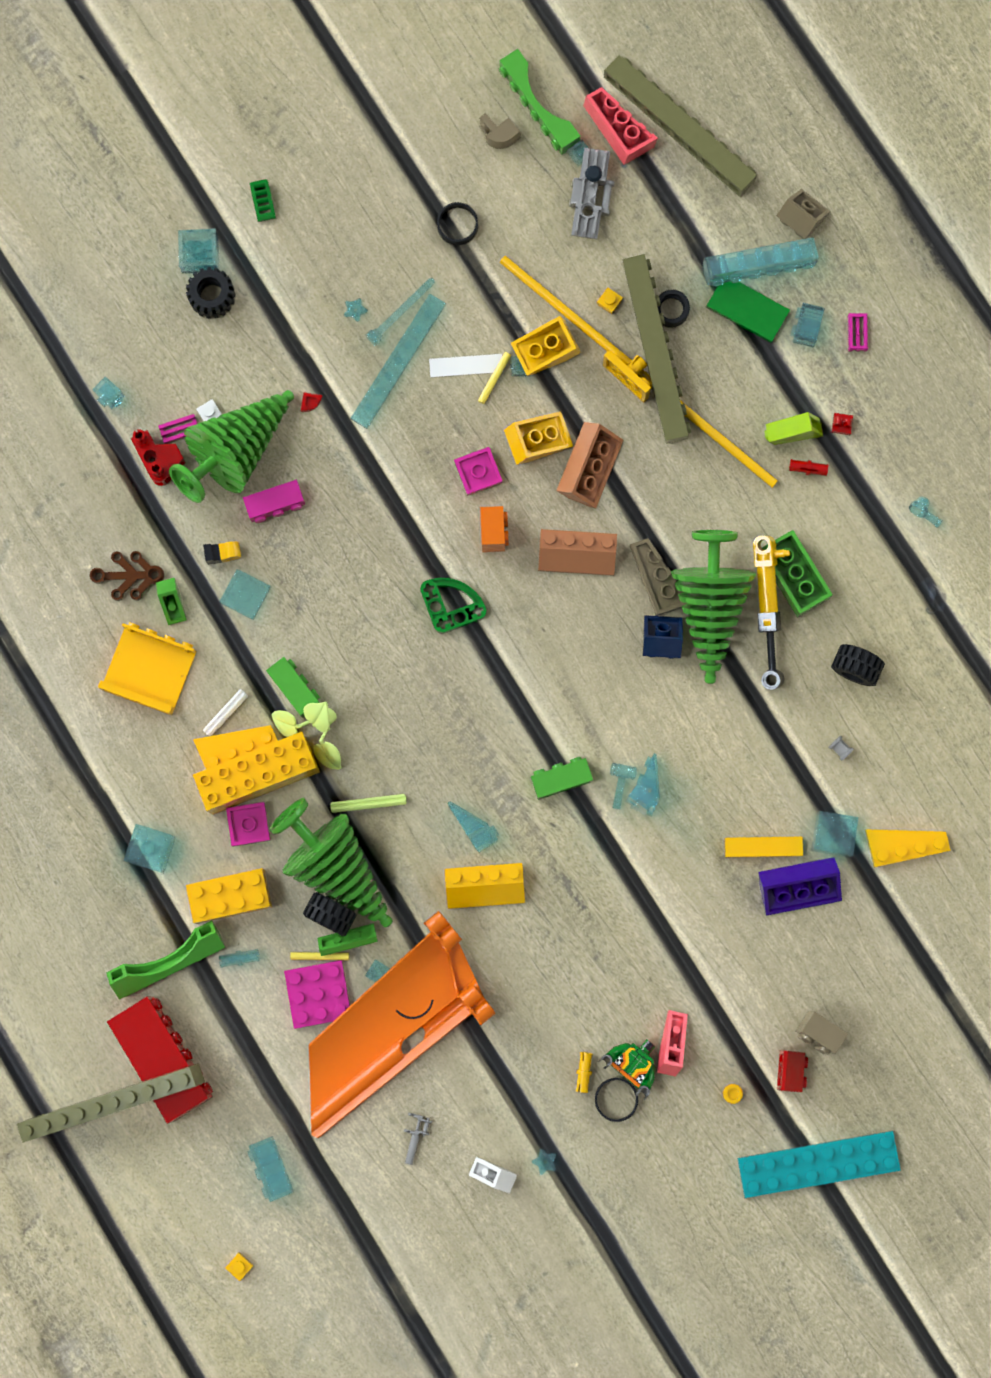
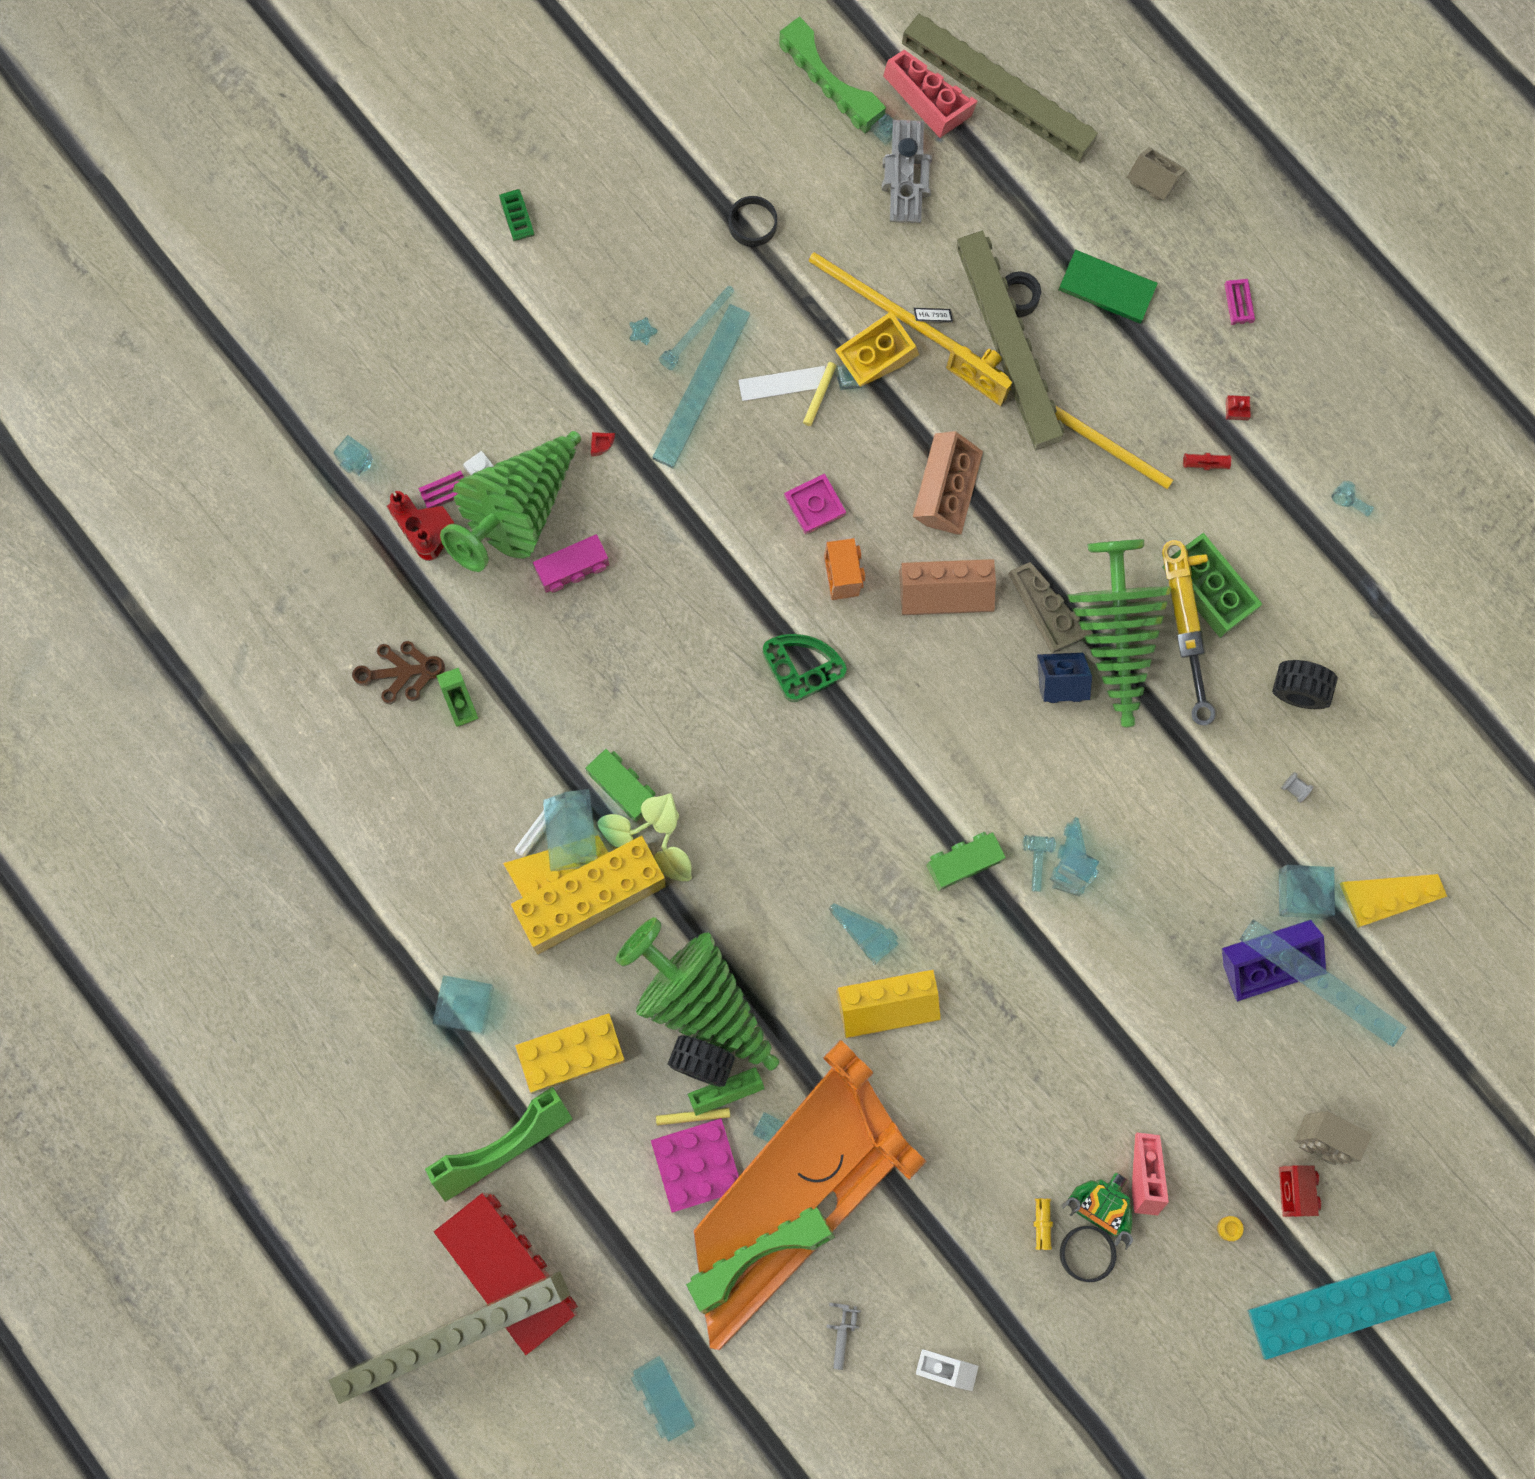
camera: 20 degrees left, 5 degrees down
(148, 668) = (438, 782): yellow panel -> none
(198, 250) = (446, 278): clear light blue brick -> none
(201, 281) = (462, 309): black tyre -> none
(221, 552) = (514, 631): leg -> none
(239, 958) = (591, 1131): clear light blue pin -> none
(245, 594) = (547, 679): clear light blue tile -> none
(248, 719) = (570, 830): none -> clear light blue slope
(248, 824) = (584, 961): dark pink plate -> none
(320, 1089) = (714, 1287): none -> bright green arch
(368, 803) = (730, 918): yellowish green axle -> none
(501, 135) = (789, 117): dark tan brick -> none
(538, 437) = (881, 457): yellow slope -> none
(544, 1167) = (1015, 1348): clear light blue plate -> none
(597, 319) = (933, 314): none -> sticker
(609, 300) = (944, 292): yellow plate -> none
(760, 261) = (1116, 230): clear light blue brick -> none
(763, 846) = (1221, 917): yellow tile -> none
(793, 429) = (1183, 418): lime slope -> none
(808, 324) = (1181, 298): clear light blue brick -> none
(834, 909) = (1322, 983): none -> clear light blue tile

